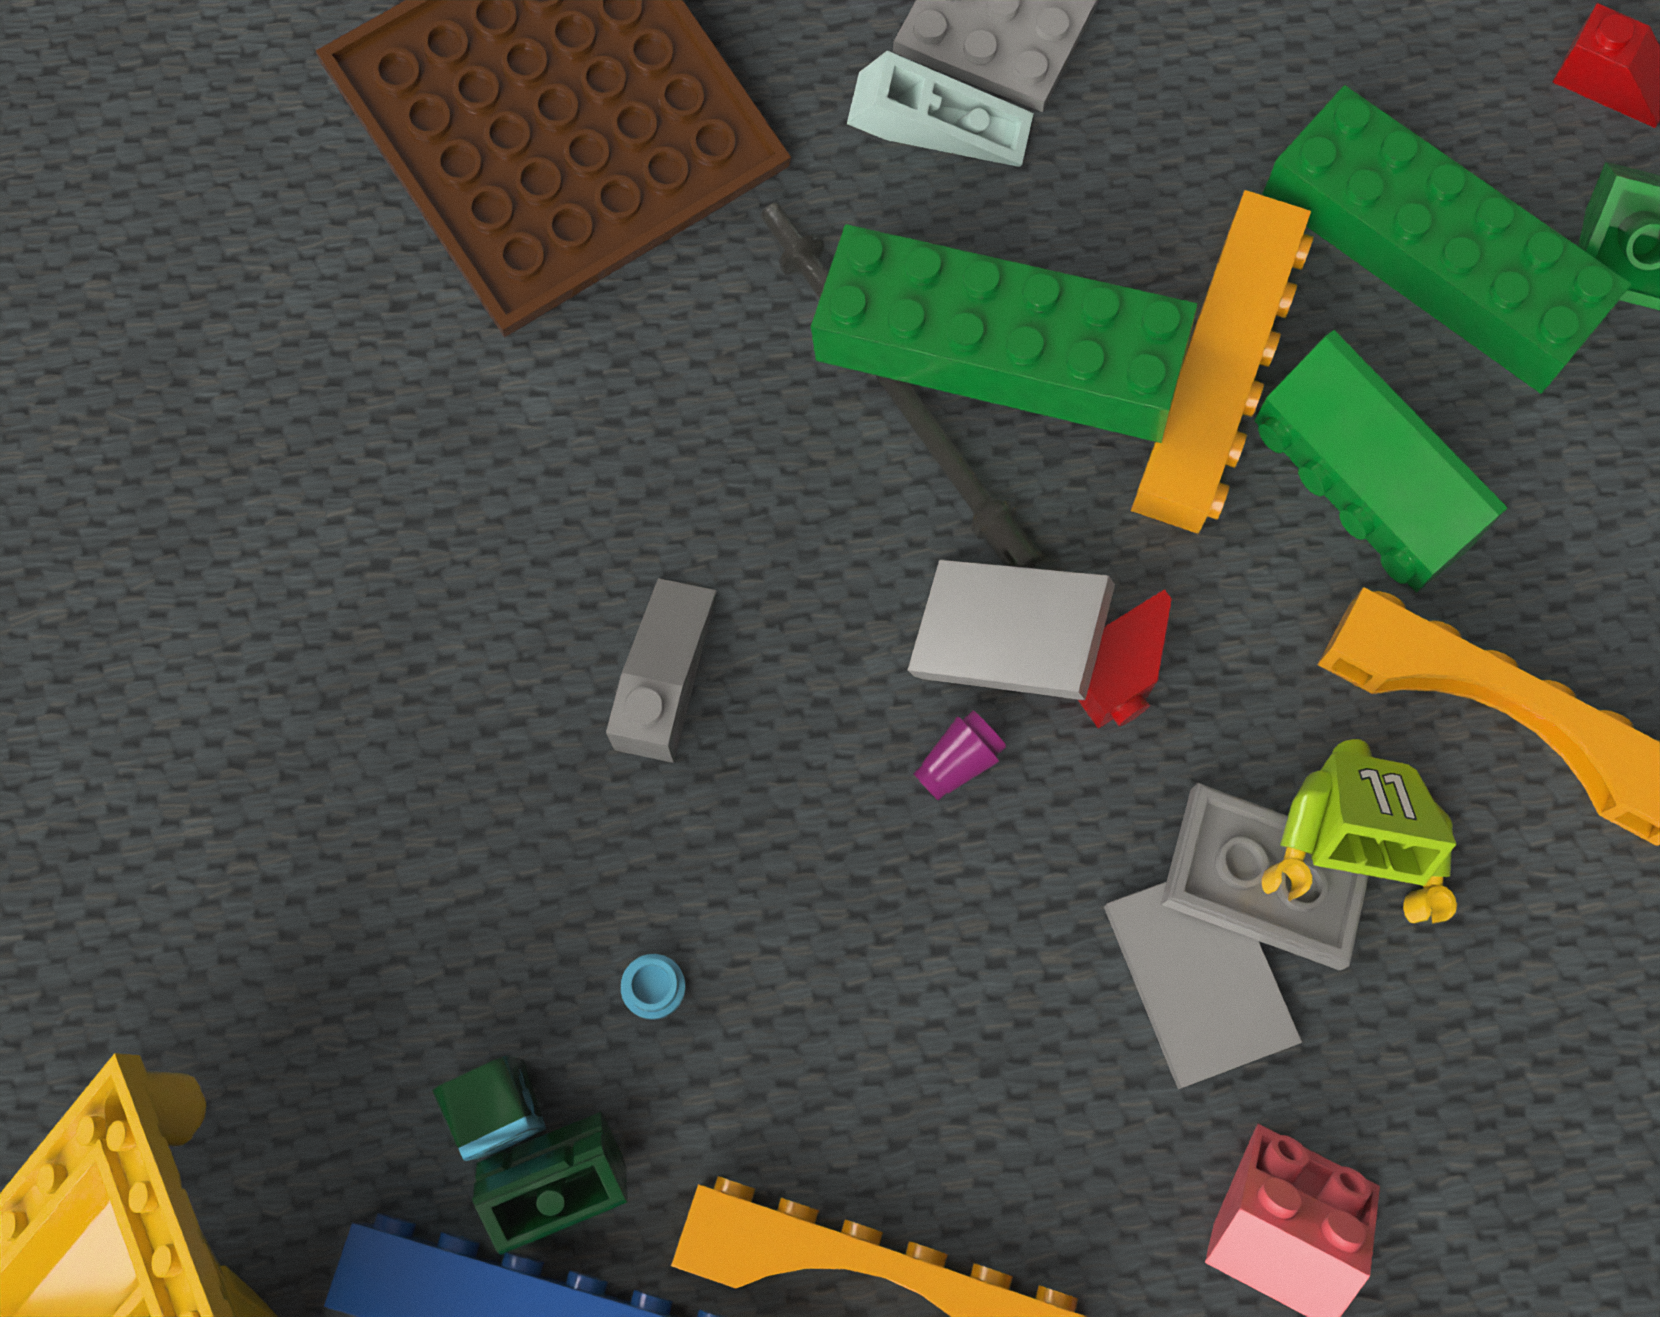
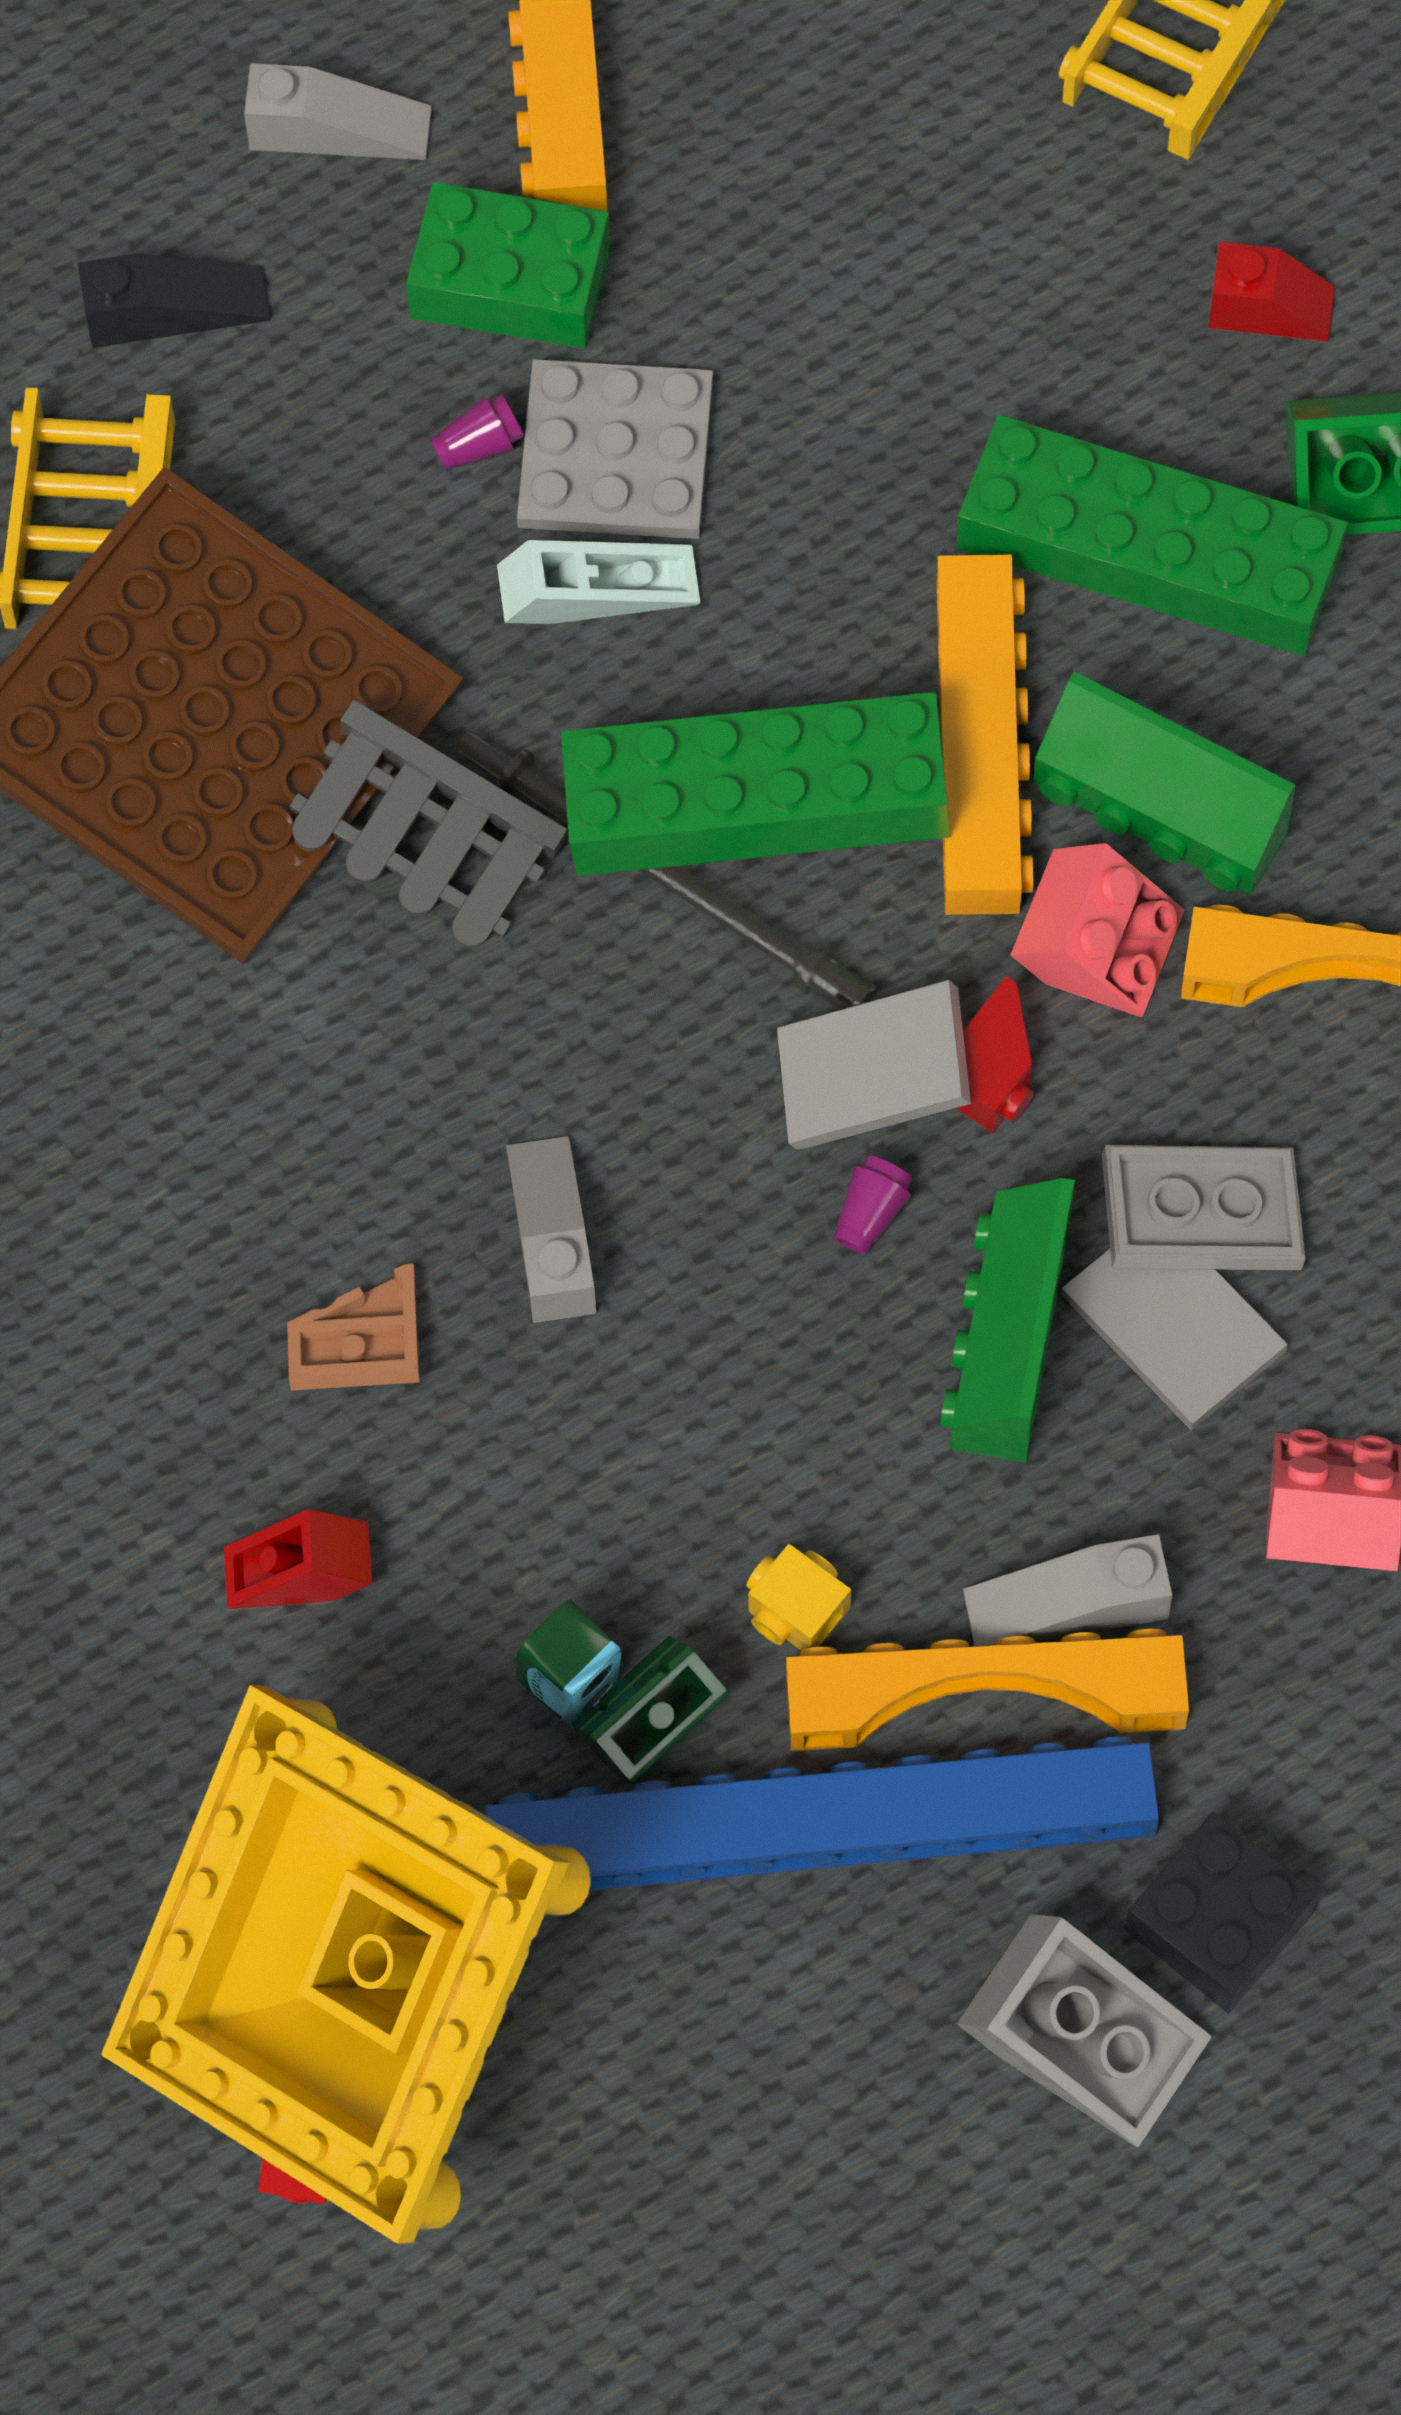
camera: 20 degrees left, 5 degrees down
(303, 902) = (298, 1561): none -> red slope
(450, 708) = (358, 1338): none -> nougat wing
(653, 986) = (666, 1518): medium azure plate -> none
(683, 249) = (405, 798): none -> dark grey fence
(737, 1119) = (797, 1598): none -> yellow brick
(999, 1220) = (1074, 1593): none -> light grey slope
(1046, 921) = (1010, 1320): none -> green slope
(1265, 573) = (1098, 928): none -> coral slope
(1371, 822) = (1279, 1120): lime torso -> none

